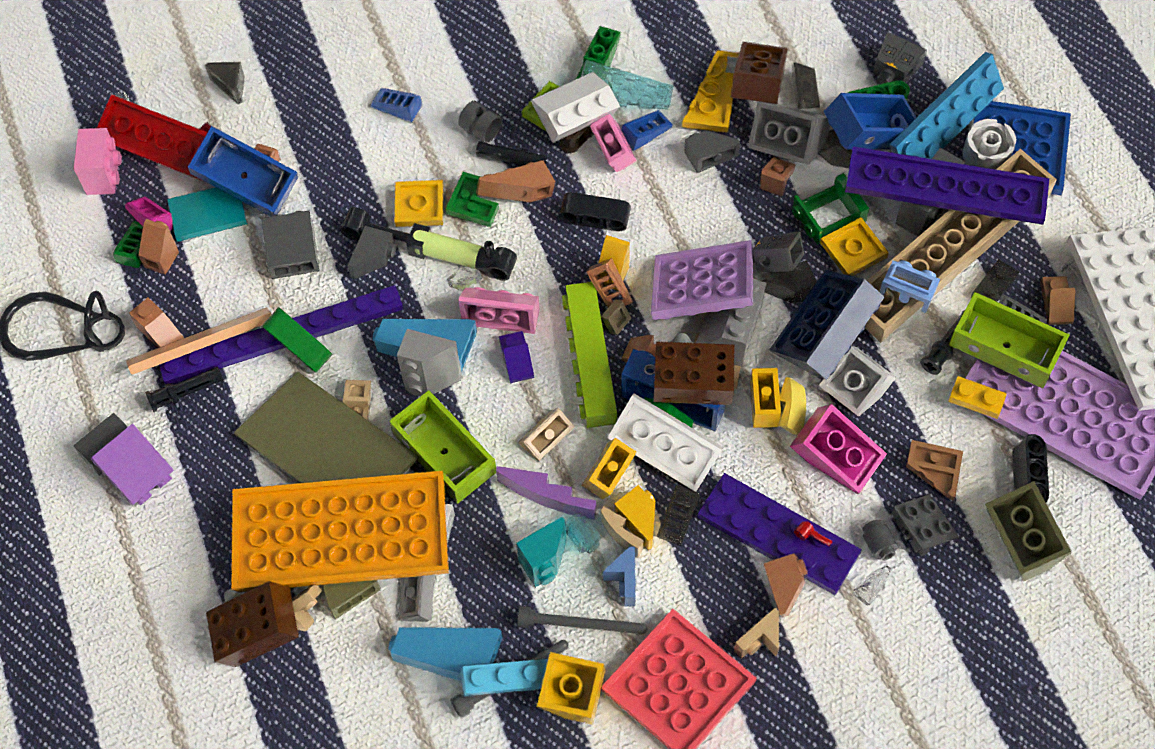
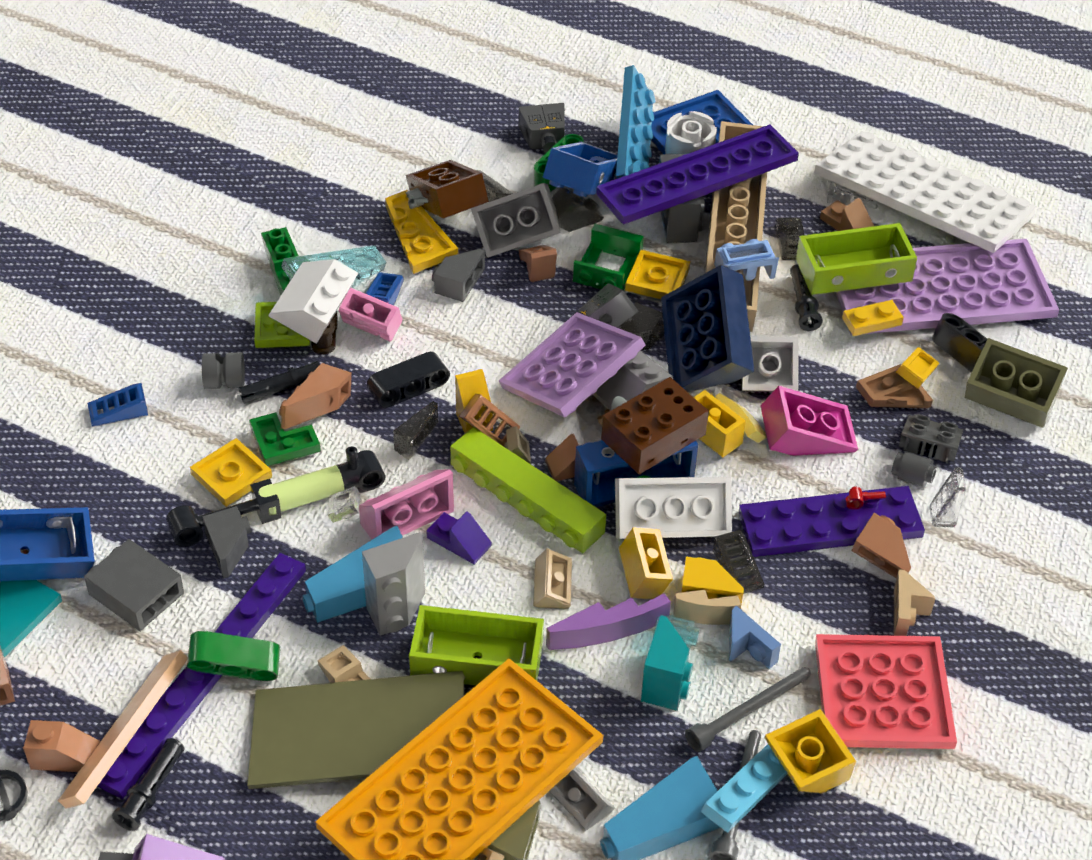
camera: 45 degrees left, 15 degrees down
(562, 255) = (415, 430): none -> clear smoke slope
(969, 462) = (917, 367): none -> yellow tile

